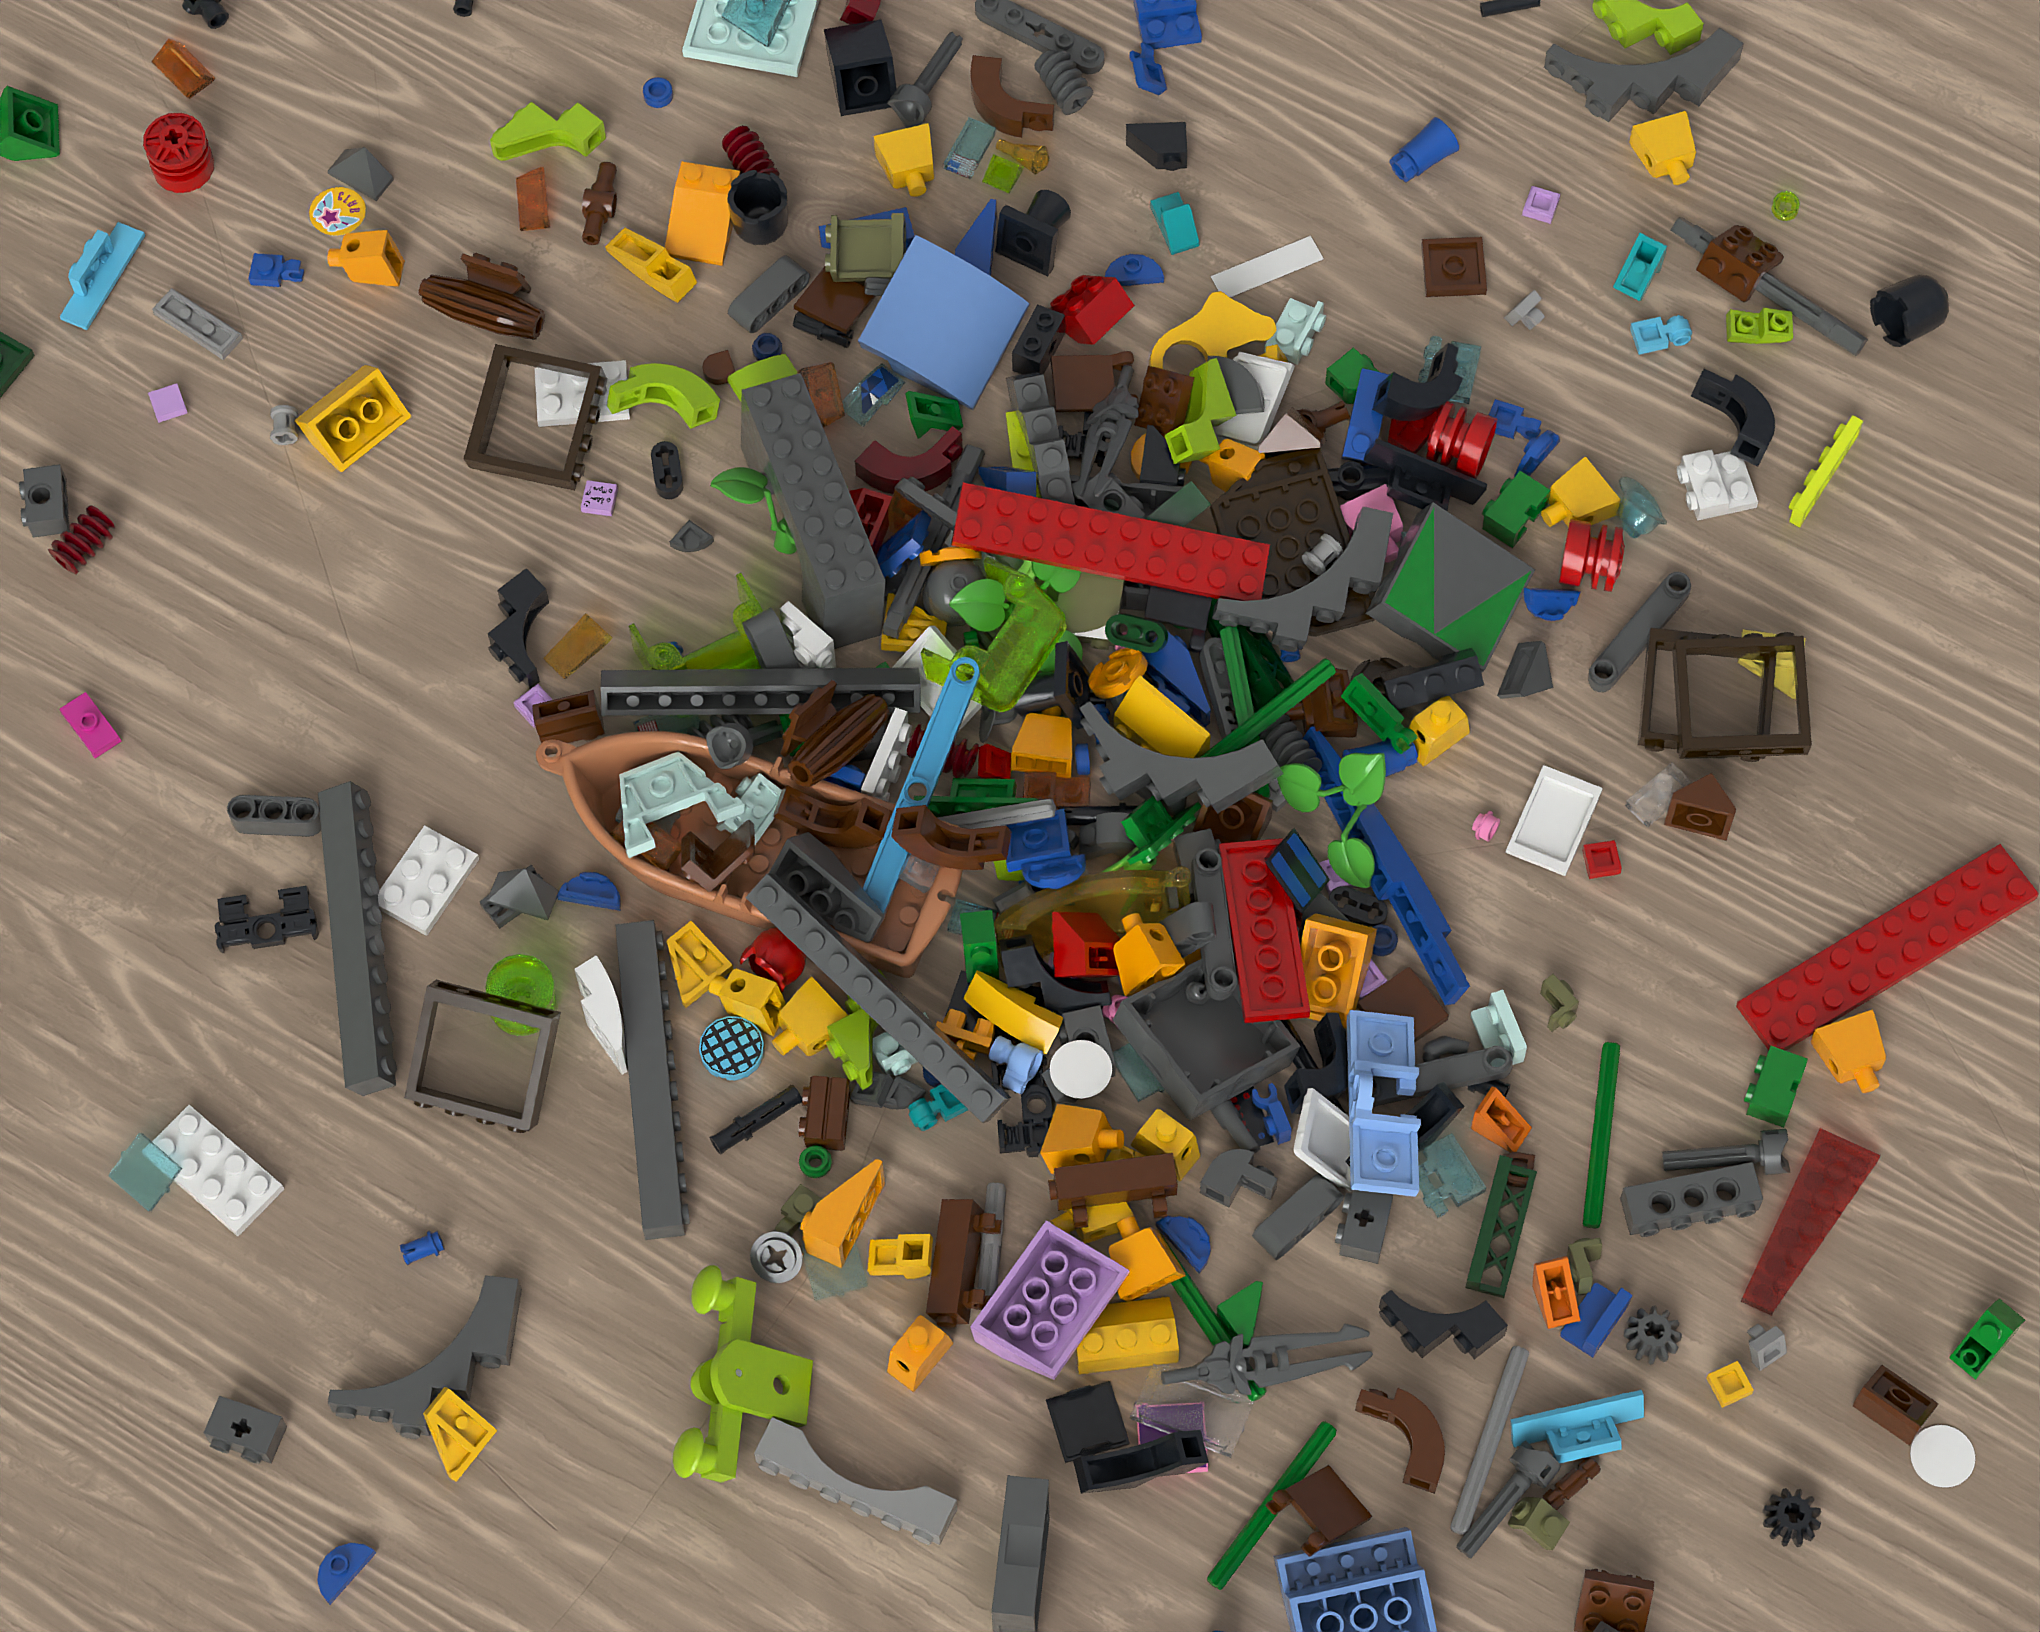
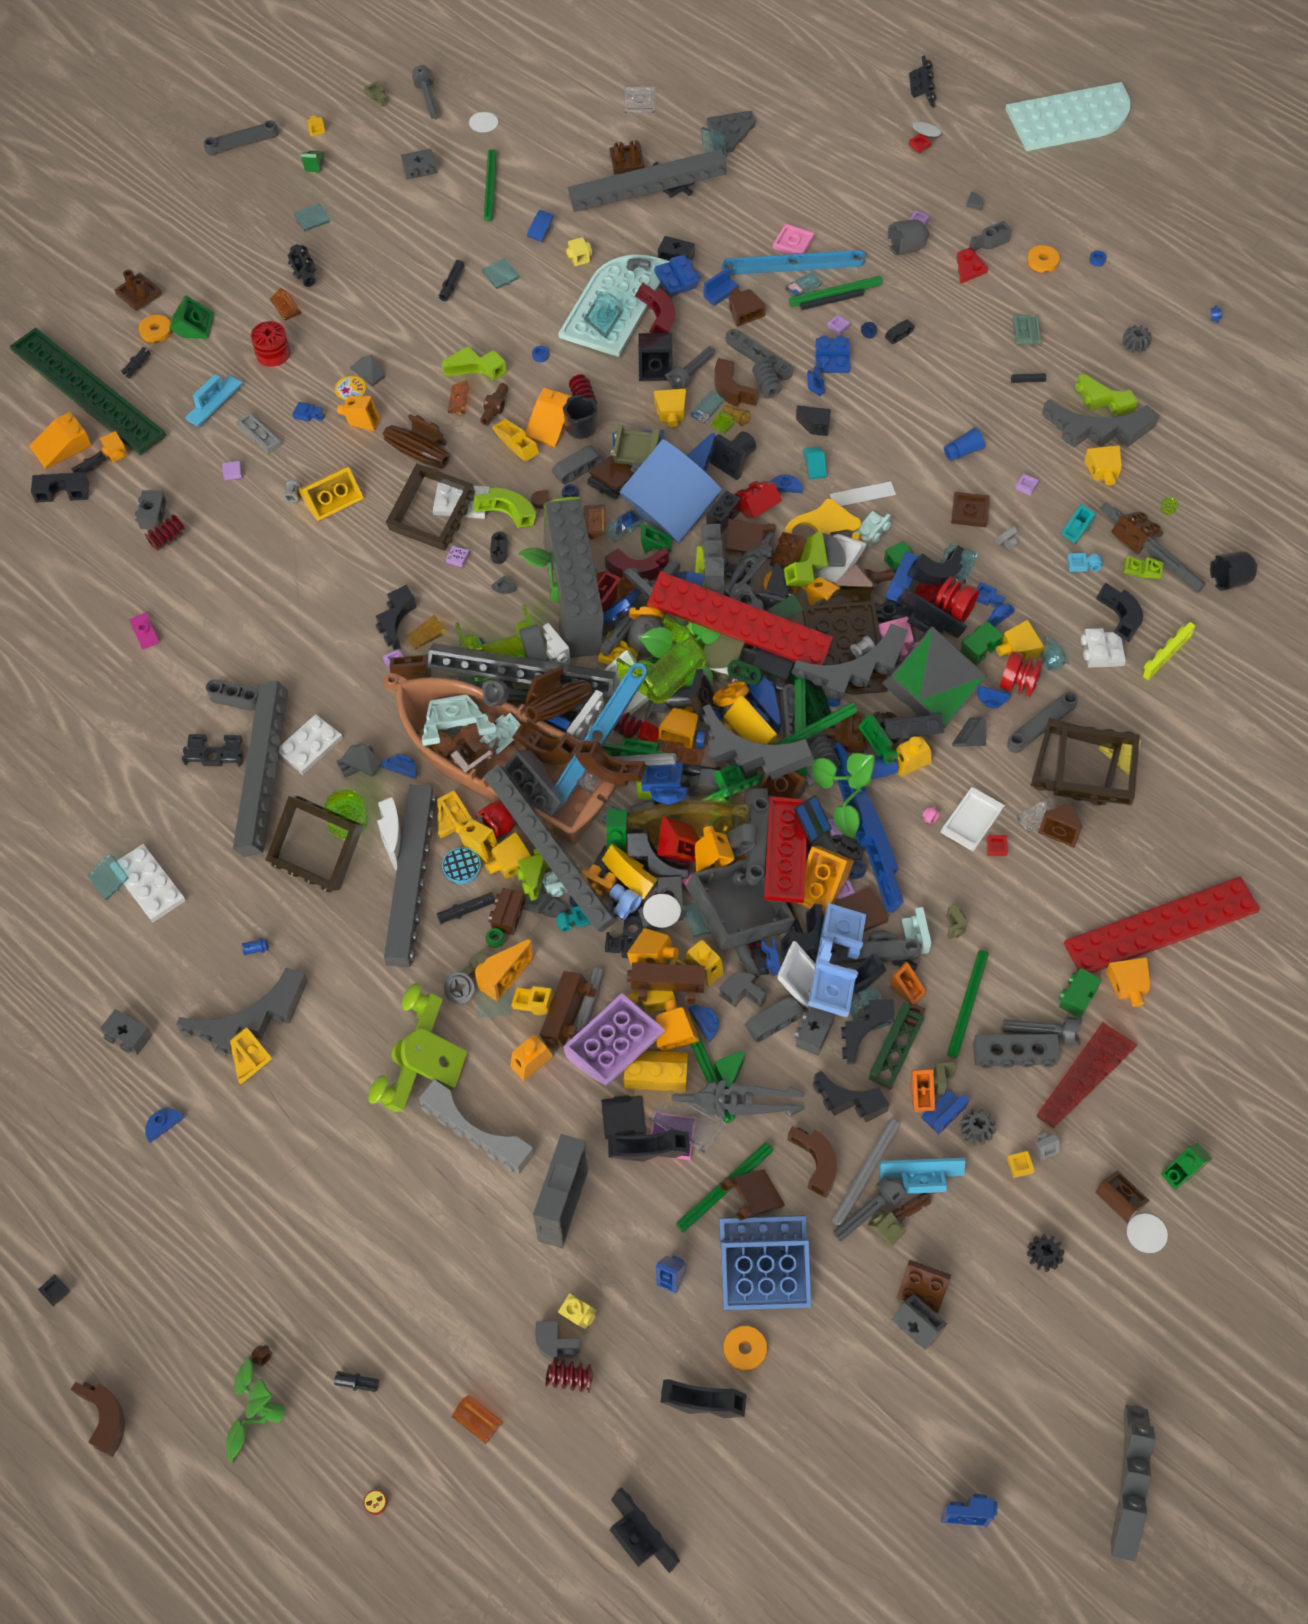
camera: 10 degrees right, 5 degrees down
(1429, 1217) = (879, 1012): none -> black arch

